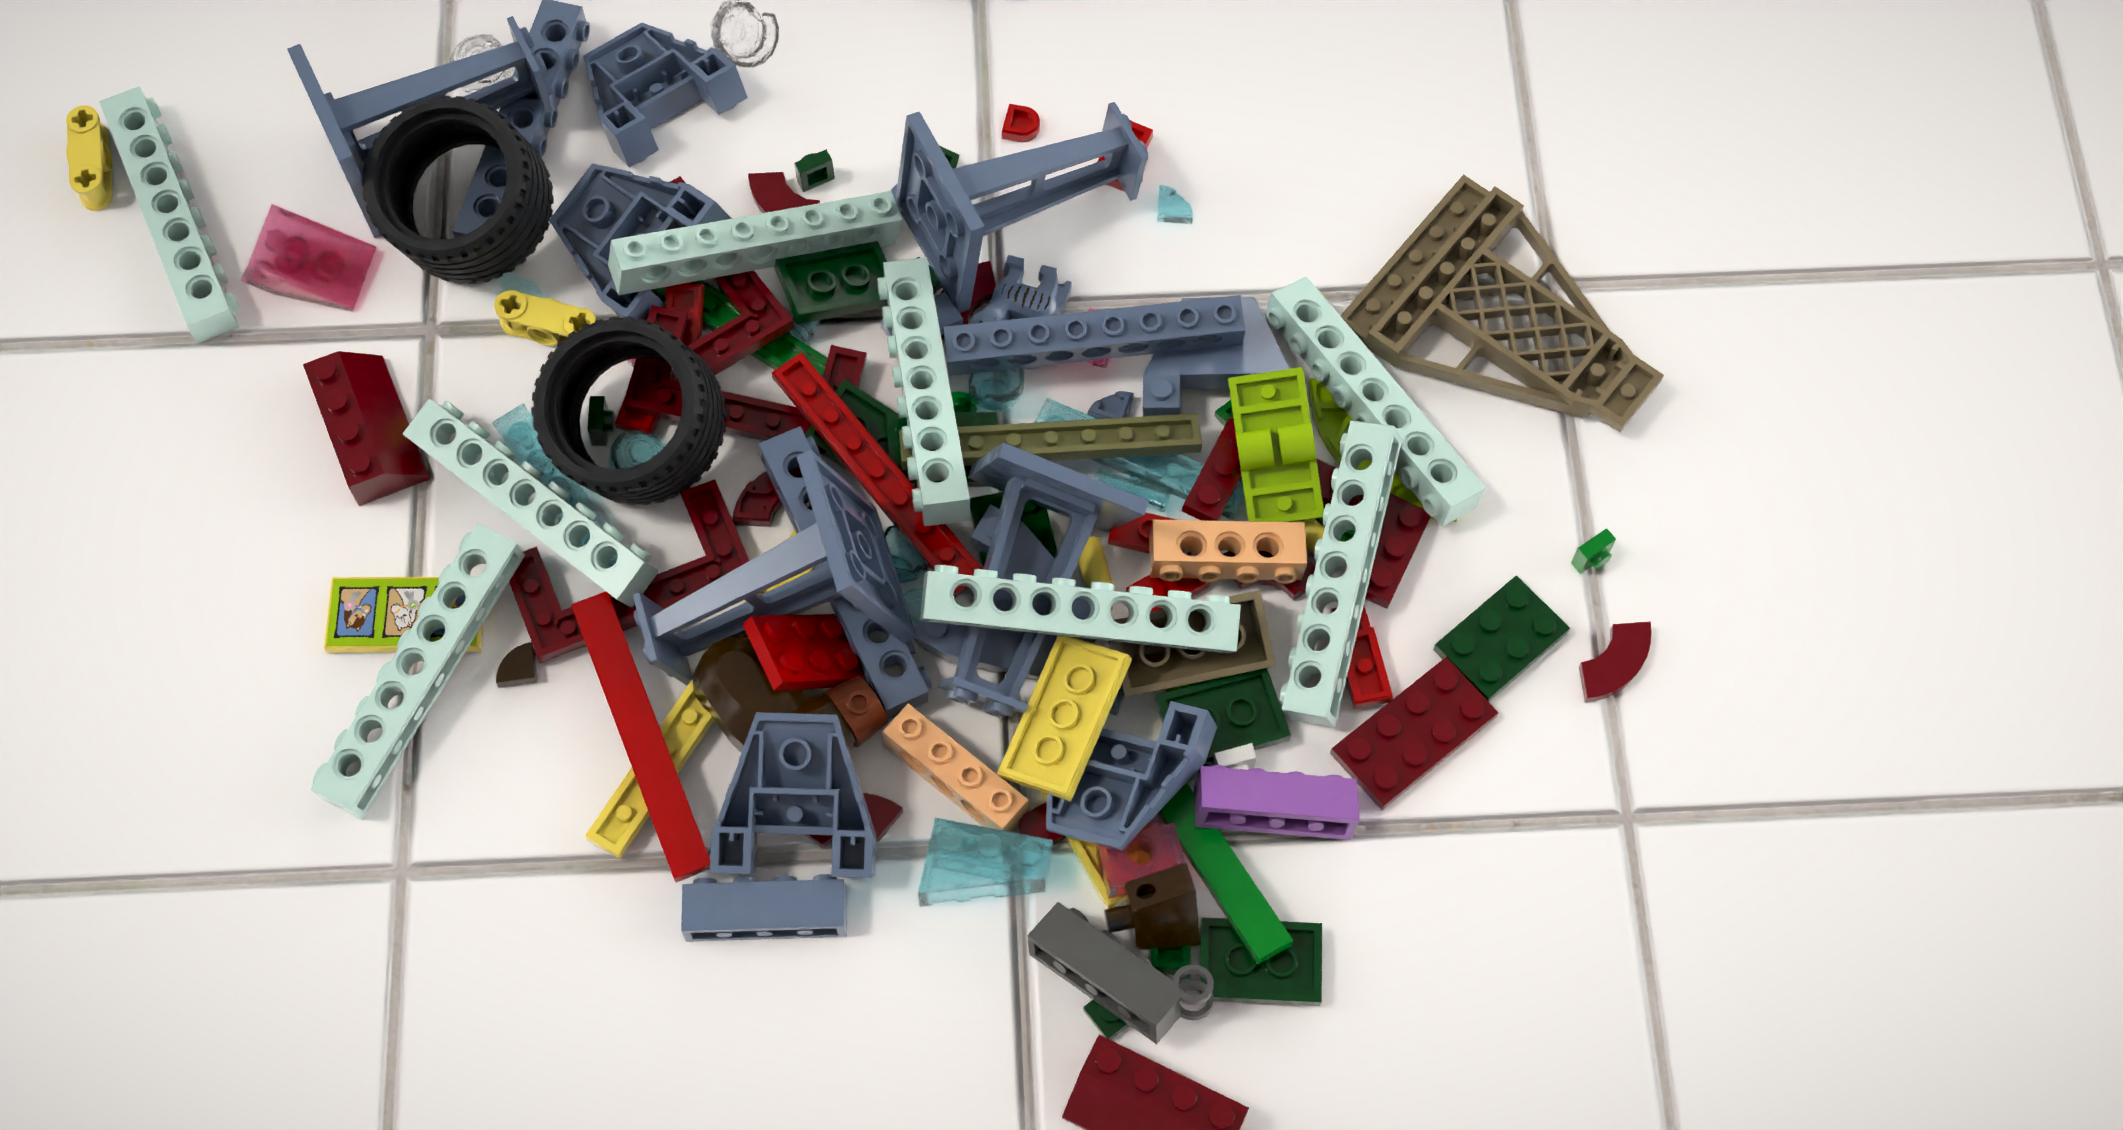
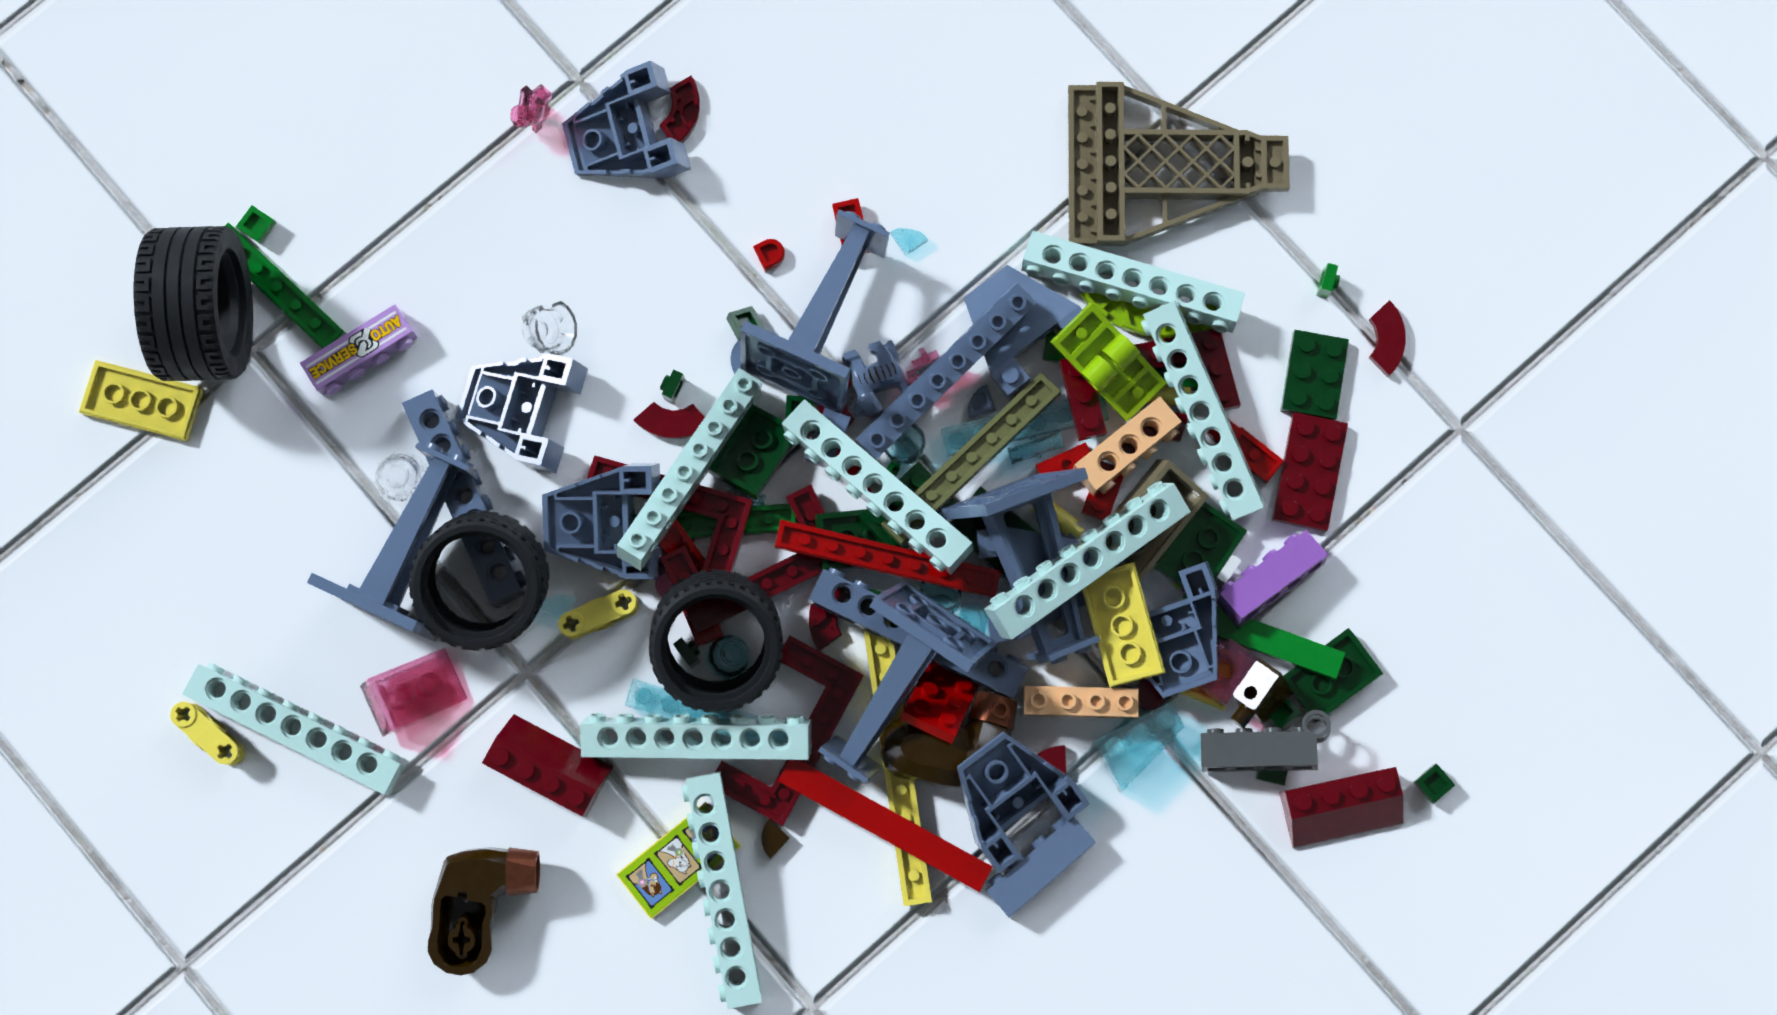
camera: 40 degrees left, 15 degrees up
(167, 485) = (468, 901): none -> dark brown piece

